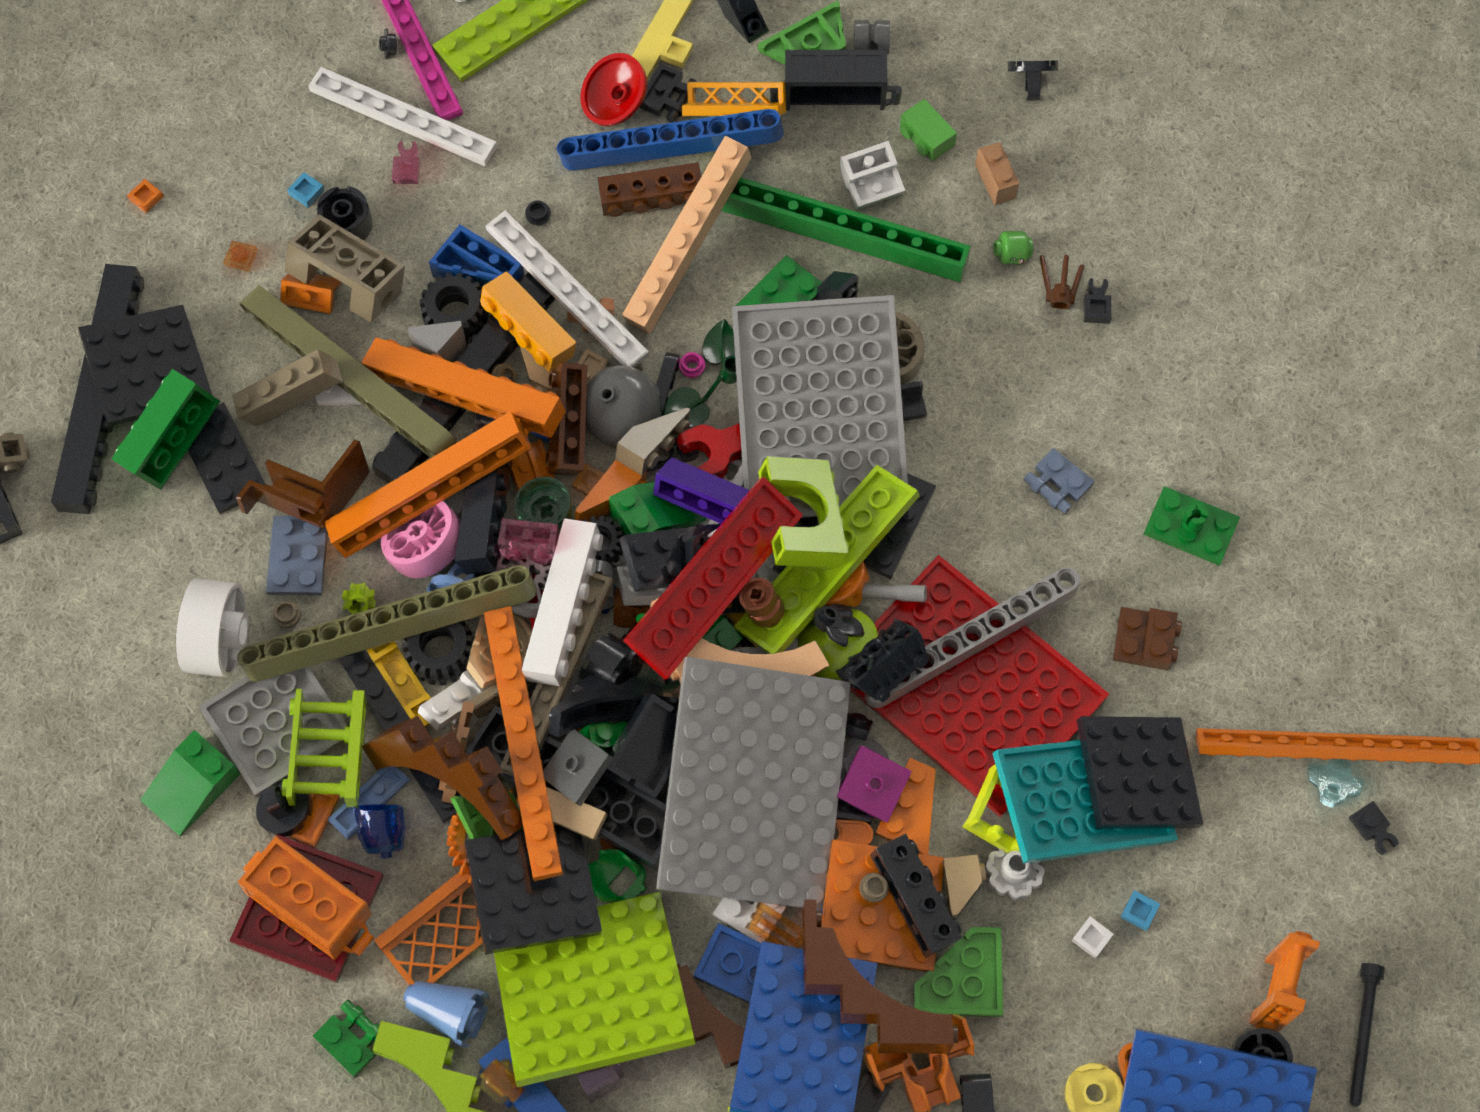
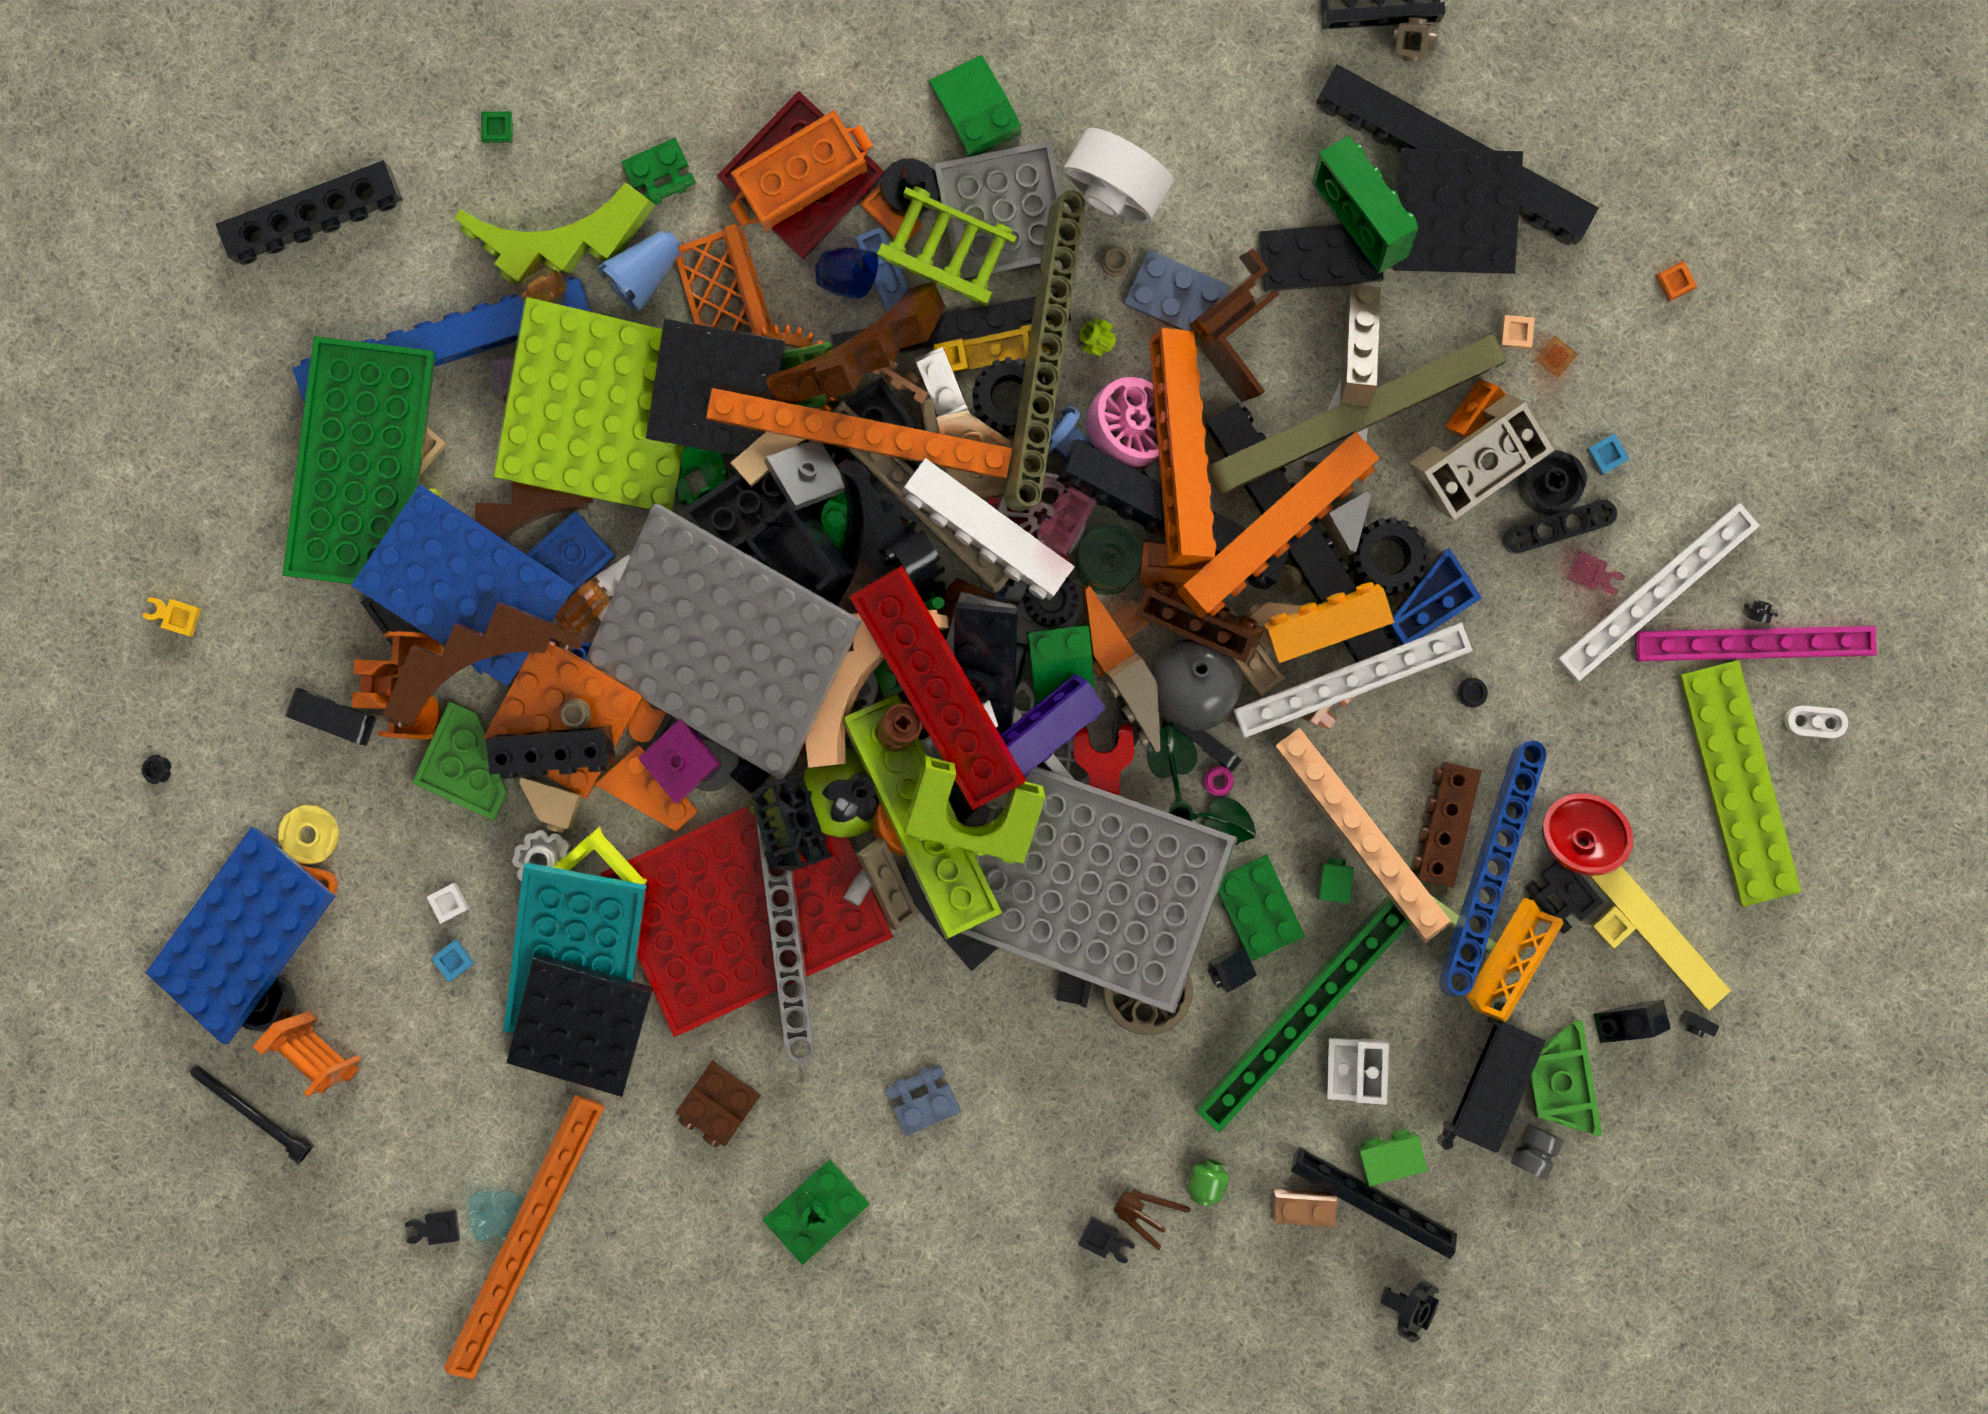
camera: 115 degrees right, 20 degrees up
(230, 289) = (1517, 332): none -> light nougat plate
(380, 201) = (1559, 526): none -> black beam
(733, 247) = (1335, 881): none -> green brick
(896, 573) = (887, 883): none -> dark tan tile
(967, 129) = (1374, 1202): none -> black tile

